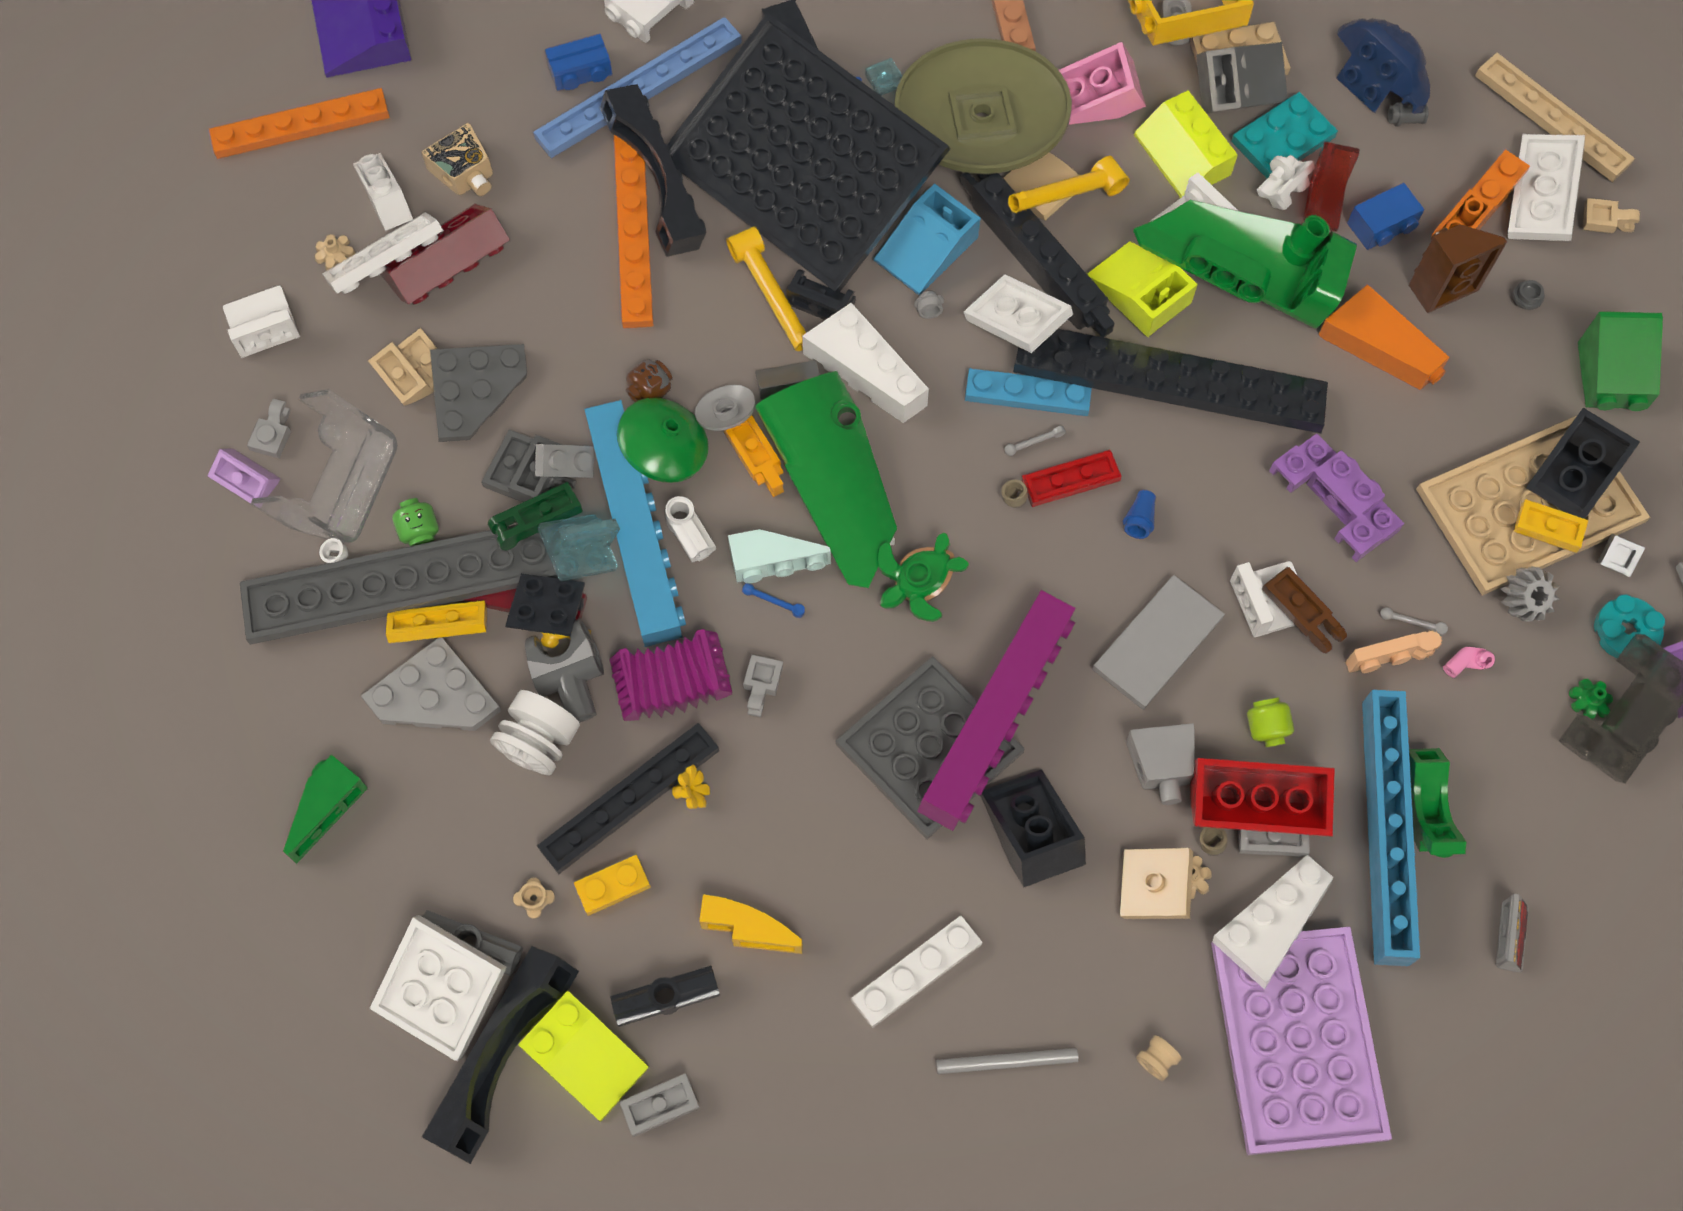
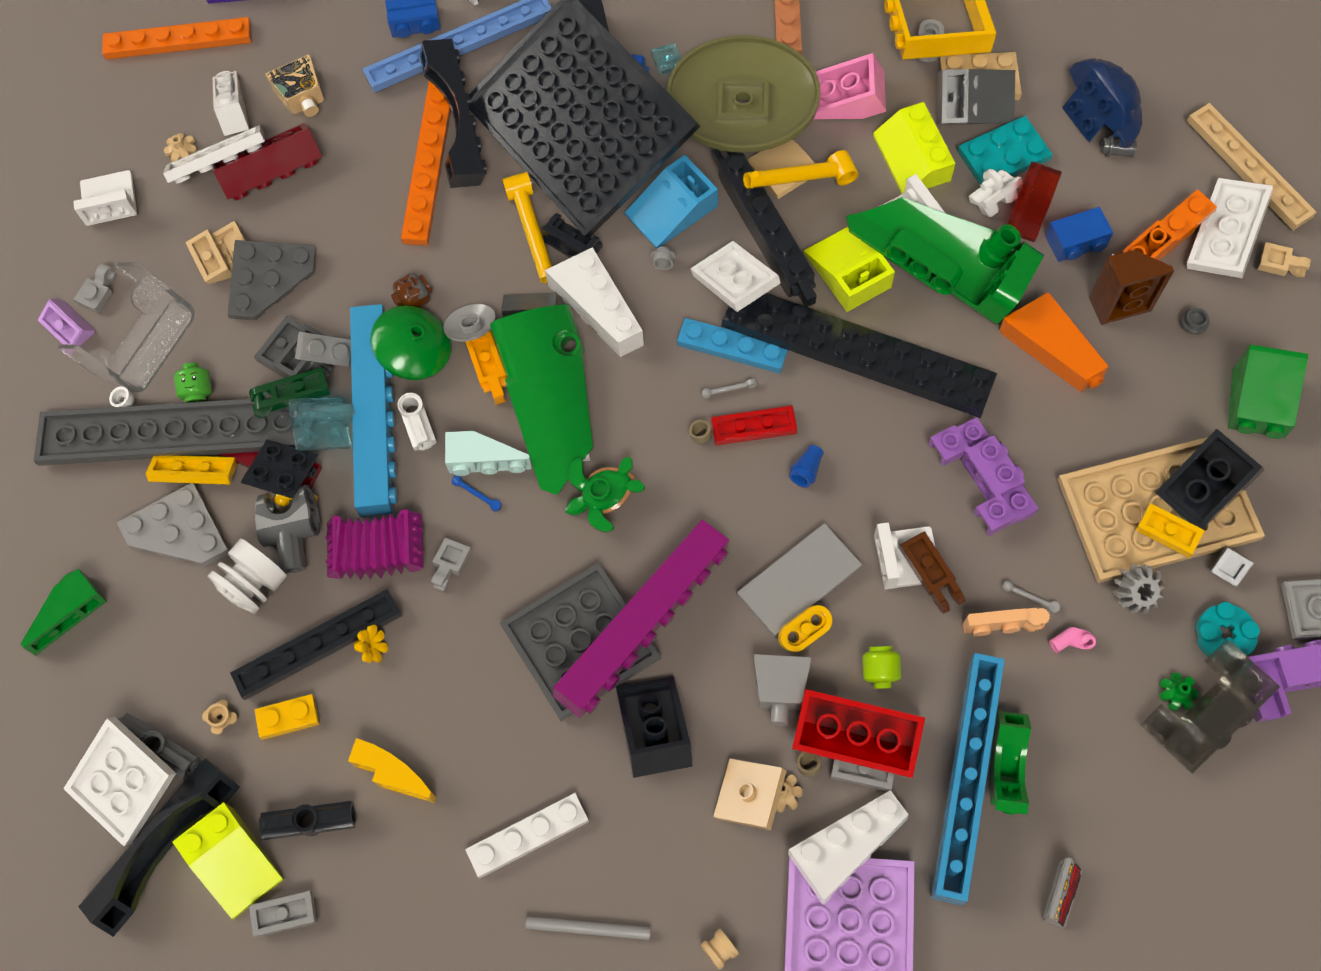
camera: 15 degrees right, 0 degrees up
(1176, 695) = (803, 628): none -> yellow plate

